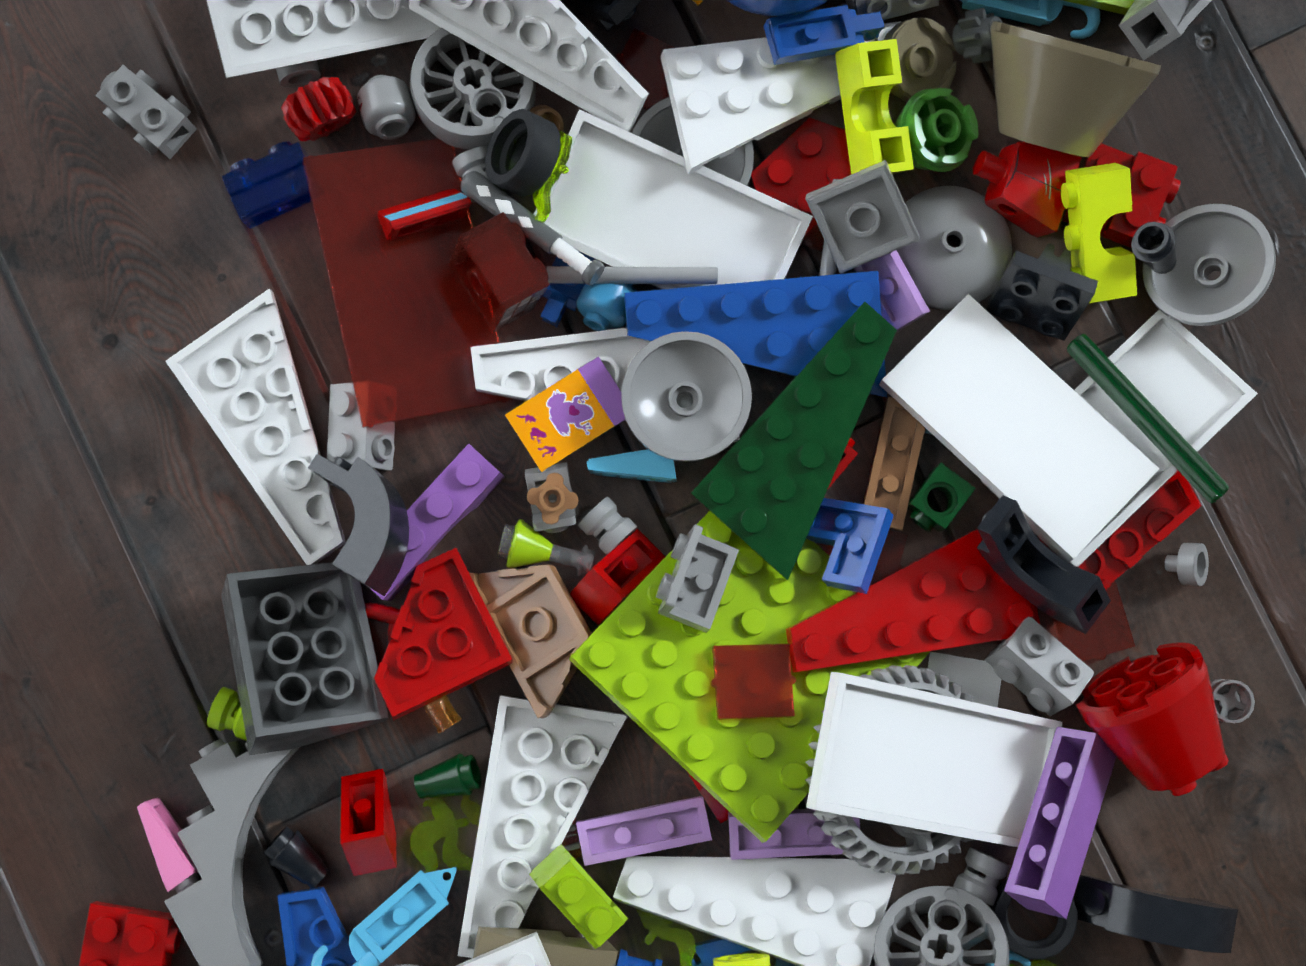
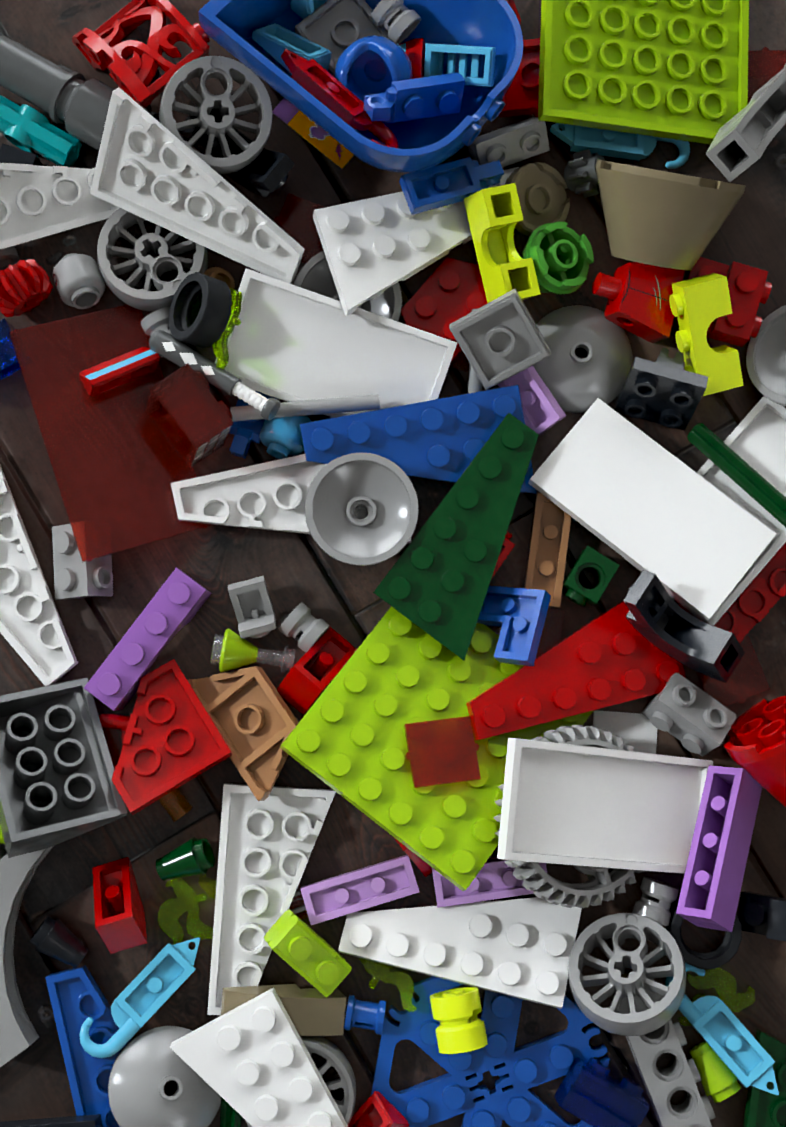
camera: 10 degrees left, 0 degrees up
(380, 523) = (104, 644): arch -> none
(540, 498) = (253, 597): medium nougat plate -> none
(568, 414) = (261, 533): sticker -> none
(634, 465) = (323, 573): medium azure slope -> none
(697, 580) = (385, 668): light grey bracket -> none
(1155, 246) = (755, 342): black cone -> none

